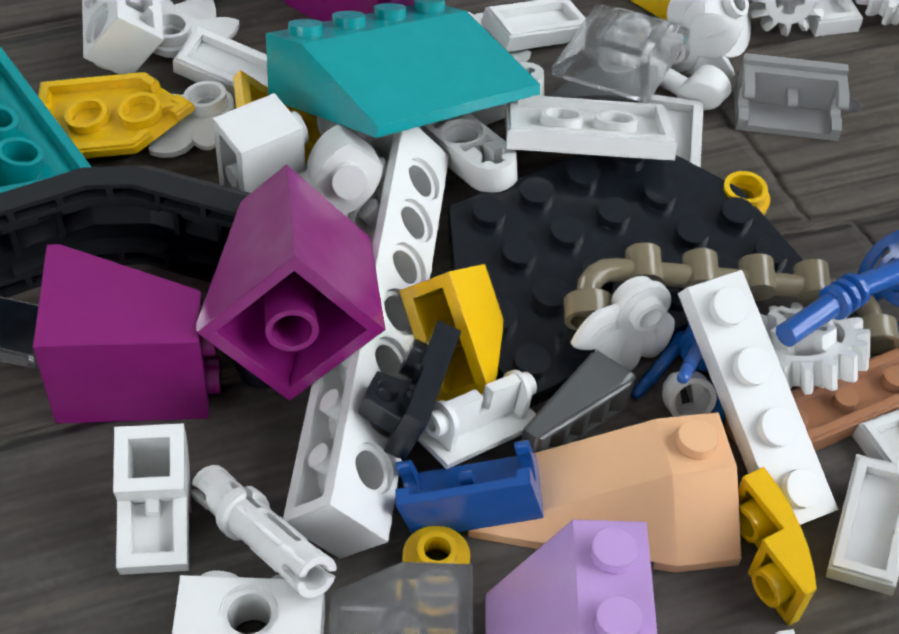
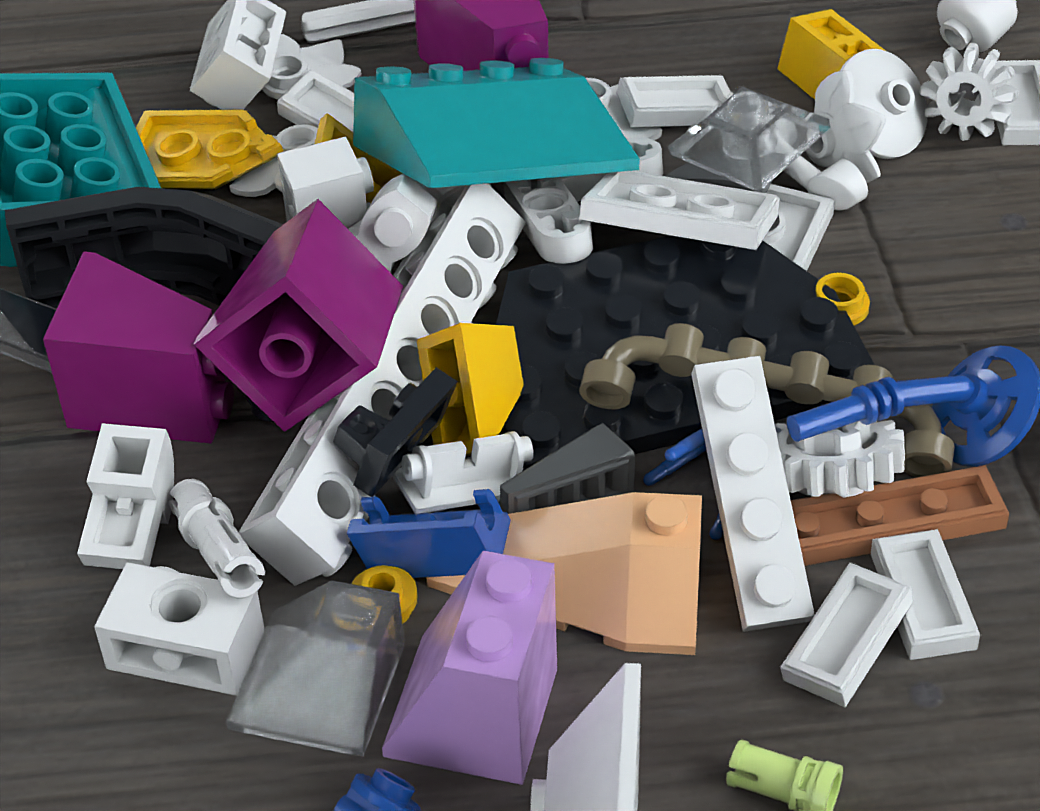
camera: 20 degrees right, 5 degrees down
(631, 326) = (646, 405): white plate -> none
(699, 390) = (682, 482): white hinge -> none
(783, 564) = (726, 634): yellow slope -> none
(791, 96) = (935, 204): light grey hinge -> none

